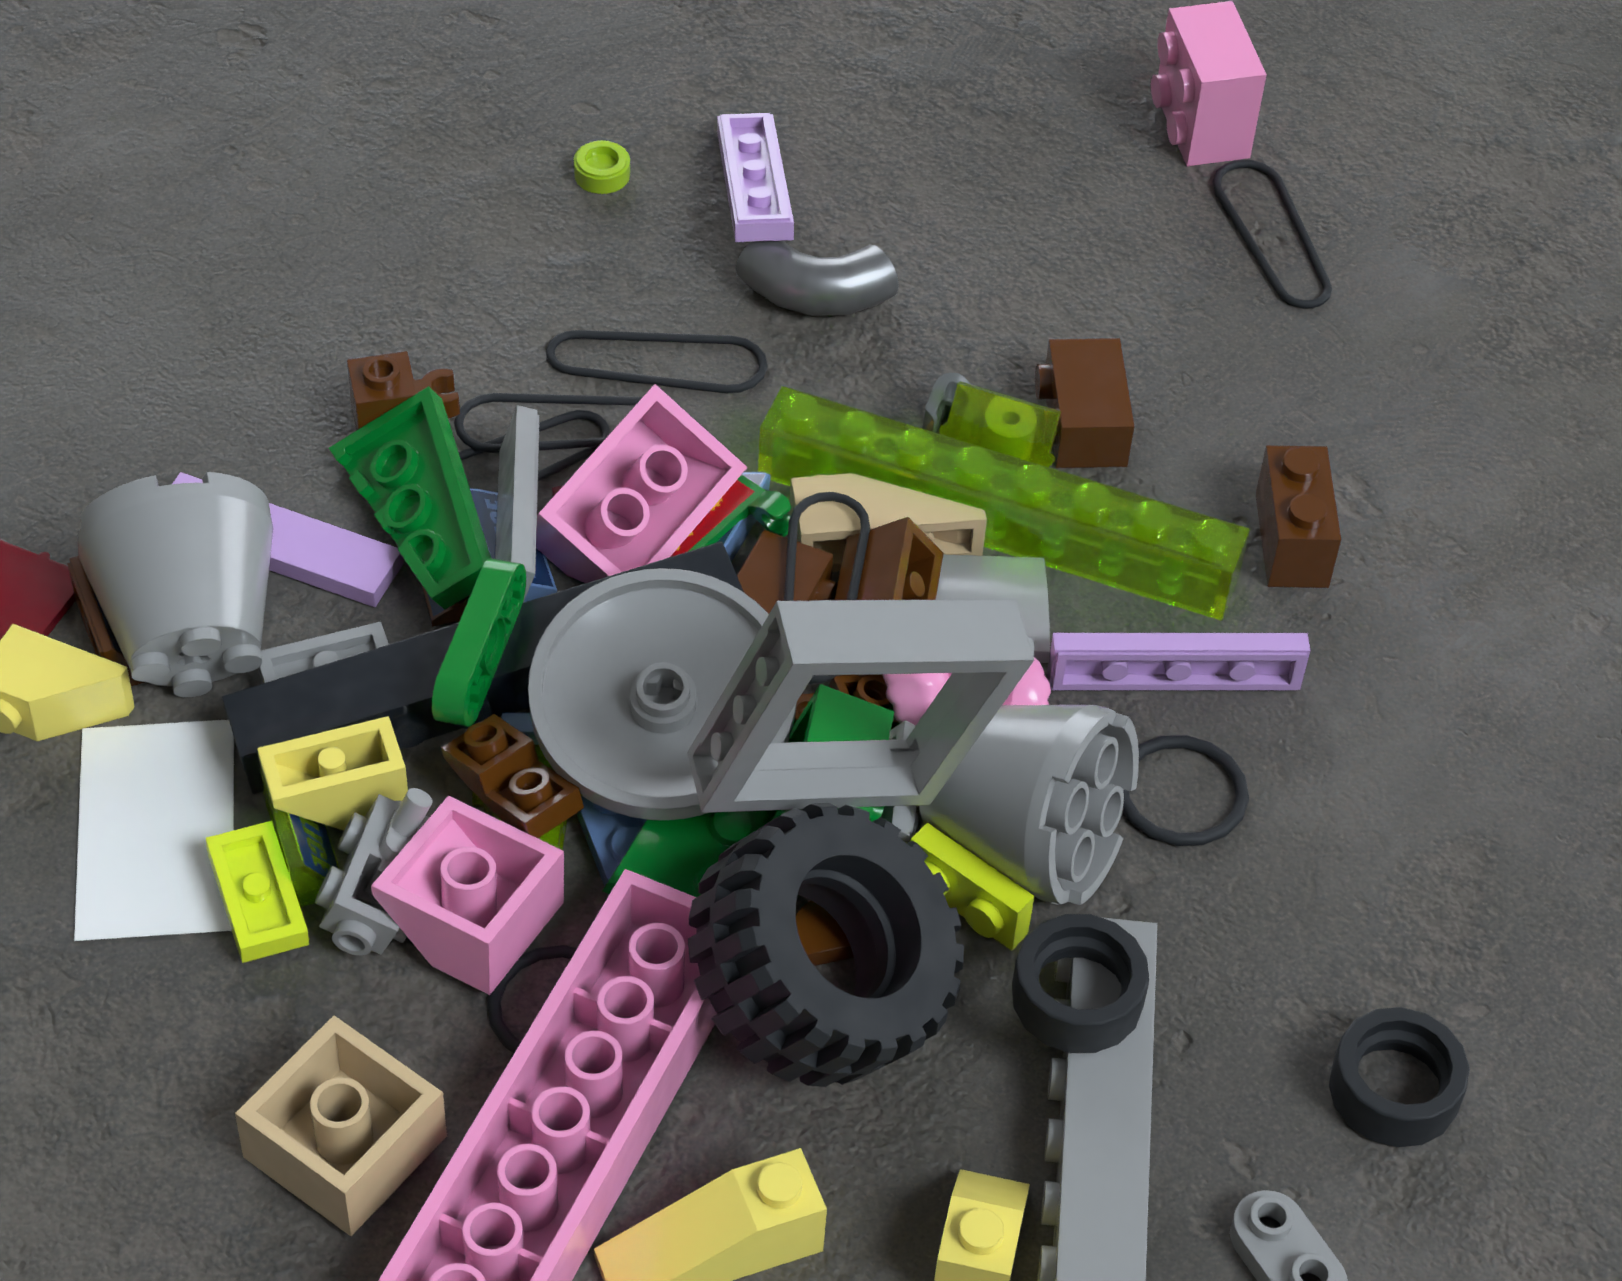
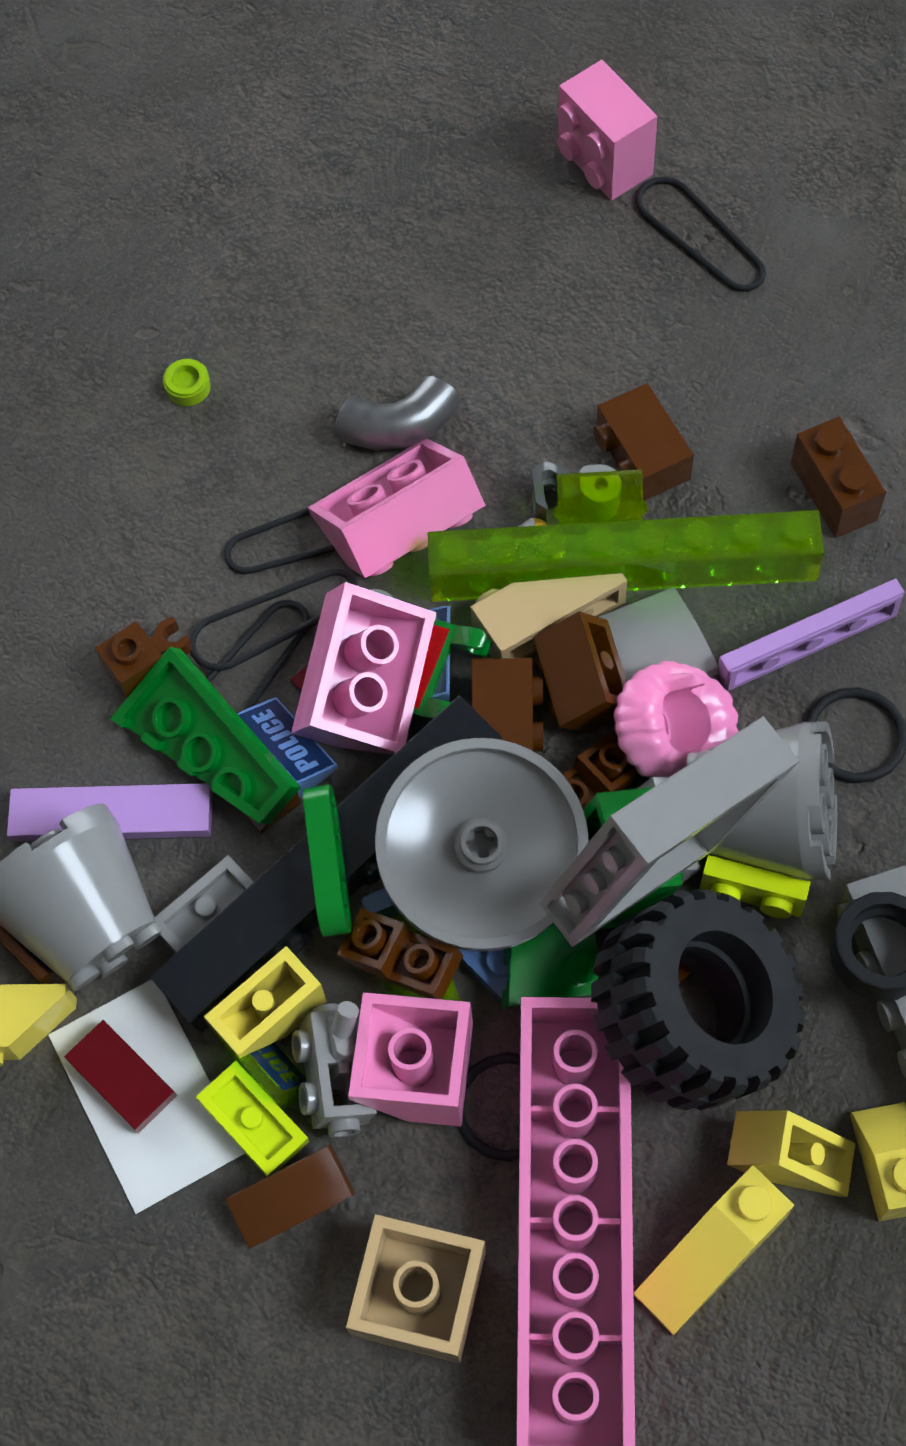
camera: 15 degrees left, 15 degrees up
(136, 794) = (120, 1076): none -> dark red tile
(254, 980) = (290, 1196): none -> reddish brown slope
(518, 492) = (282, 713): light grey tile -> none
(750, 361) = (397, 505): none -> bright pink slope
(754, 178) = (311, 350): lavender tile -> none
(792, 546) = (561, 677): black piece -> none
(865, 1172) = (791, 1151): none -> light yellow slope

